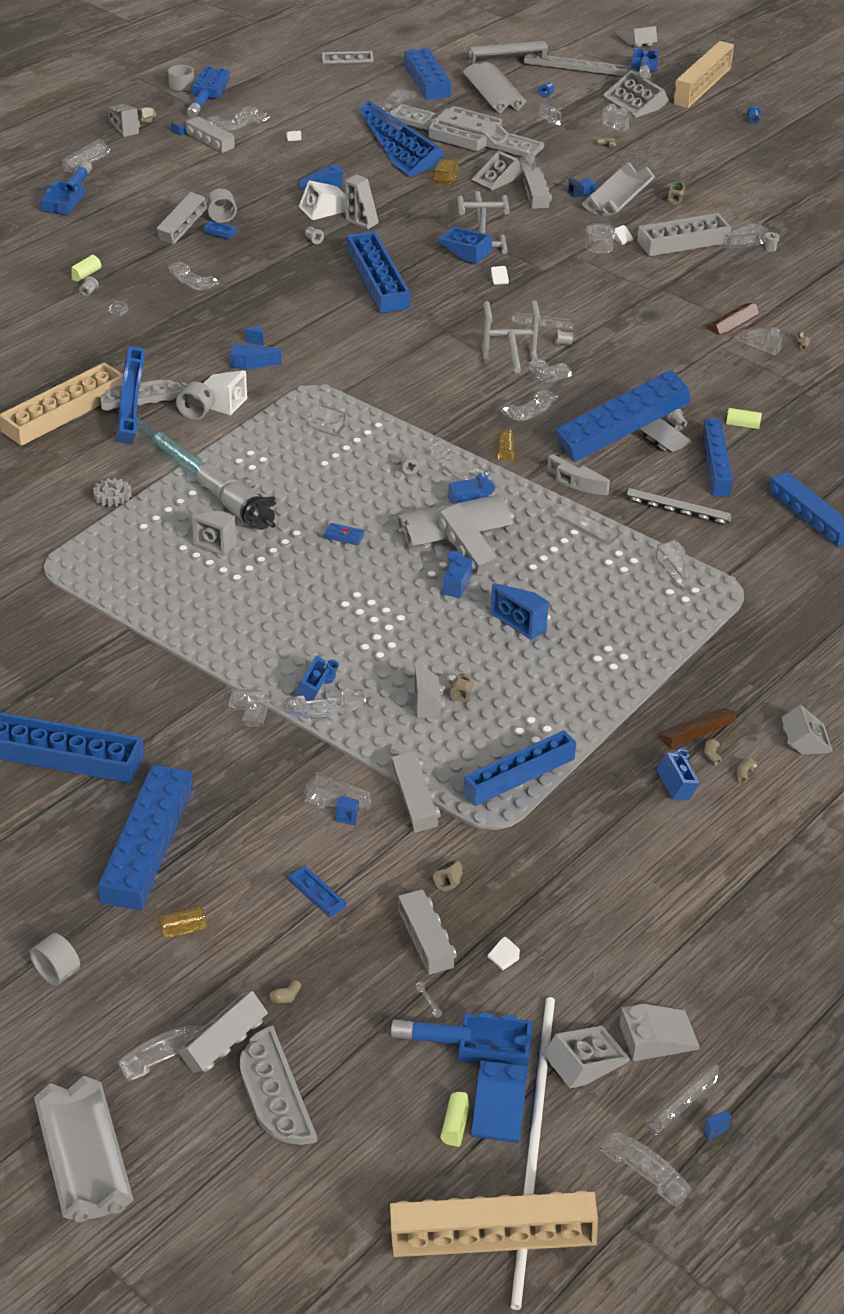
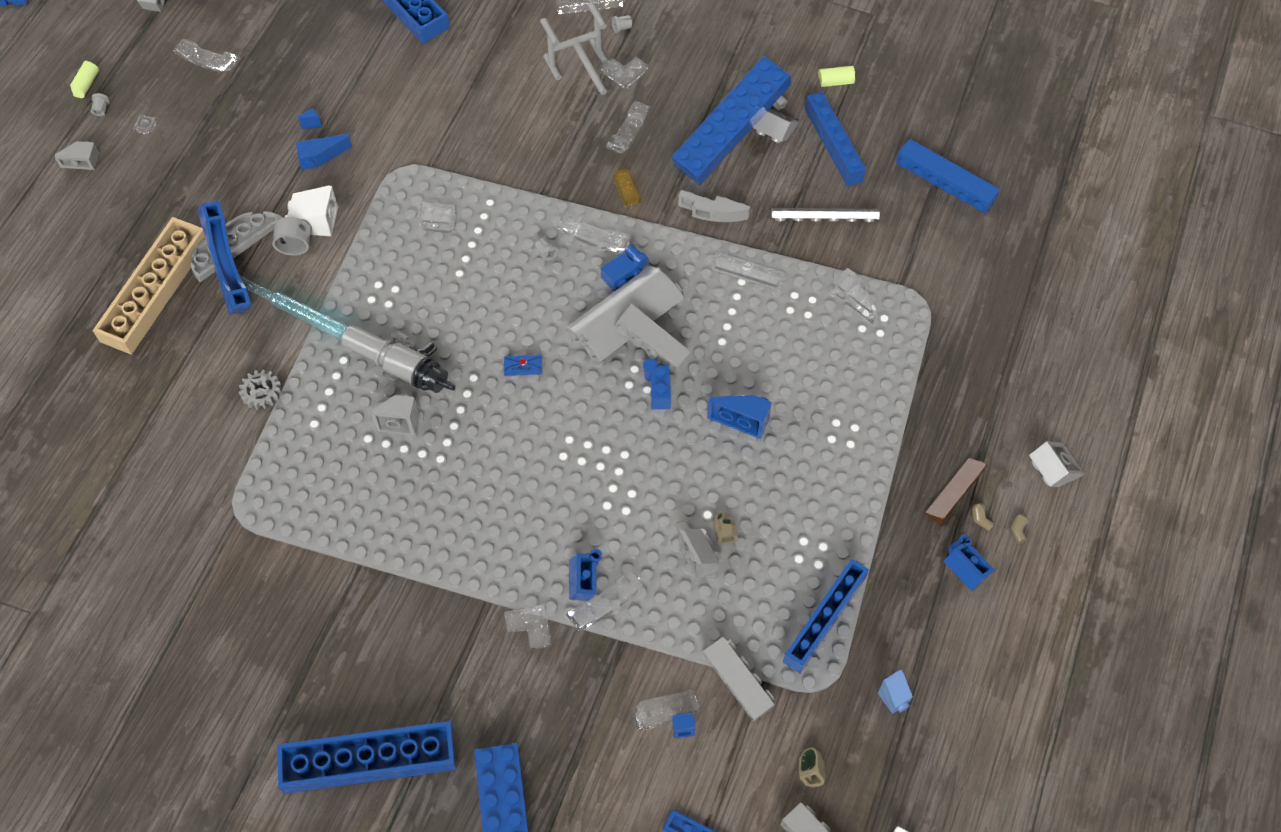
camera: 20 degrees left, 20 degrees up
(52, 313) = (78, 156): none -> light grey slope
(556, 841) = (896, 692): none -> medium blue slope

